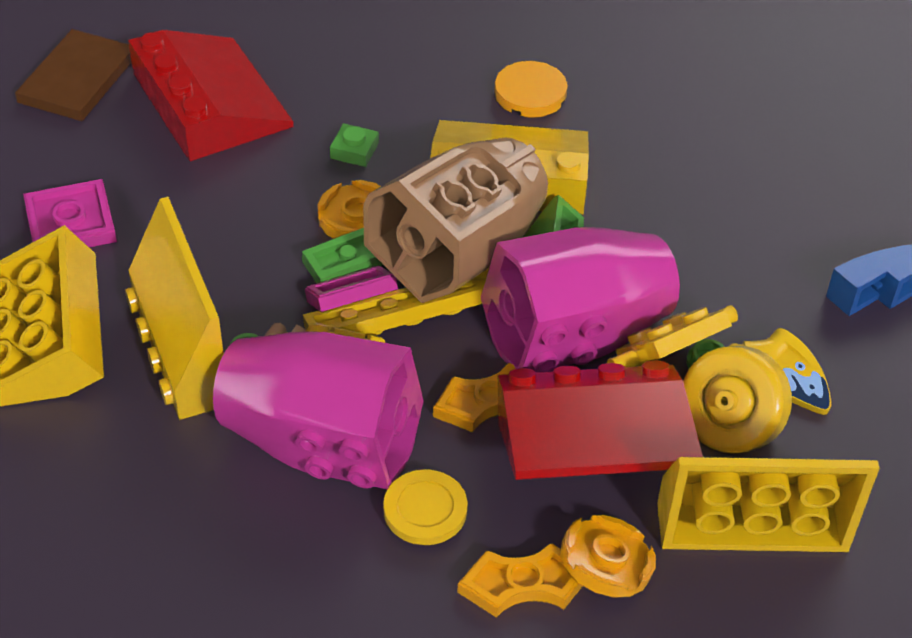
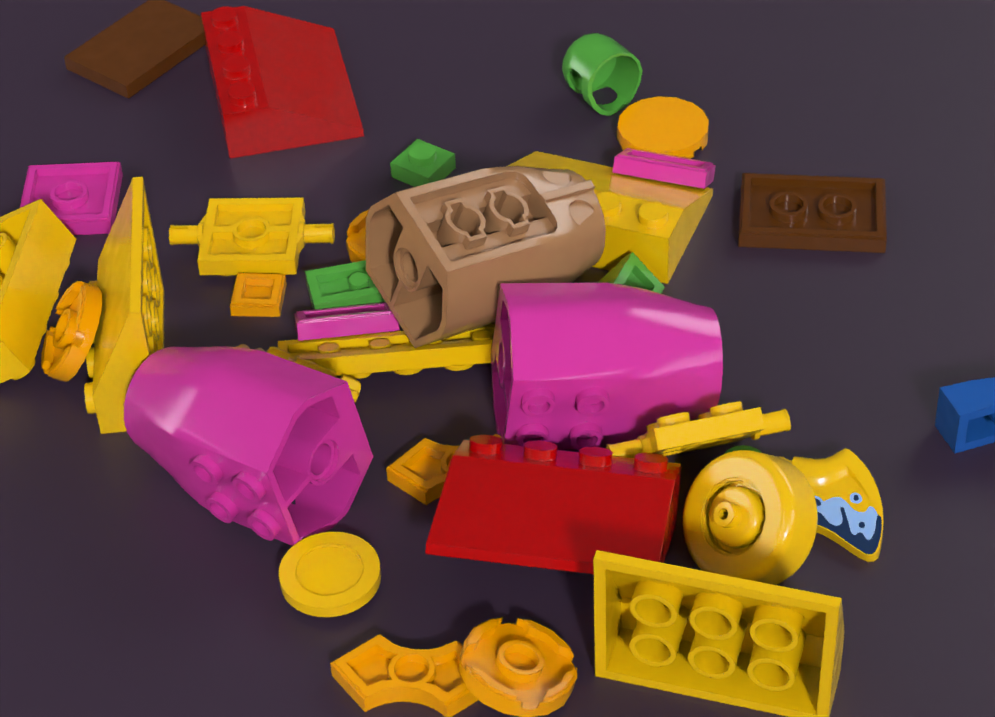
camera: 20 degrees right, 5 degrees down
(132, 336) = (70, 341): none -> light orange tile
(243, 227) = (251, 236): none -> yellow plate
(264, 276) = (258, 295): none -> light orange tile
(466, 40) = (599, 63): none -> bright green helmet
(547, 120) = (664, 168): none -> dark pink tile
(670, 140) = (813, 213): none -> reddish brown tile

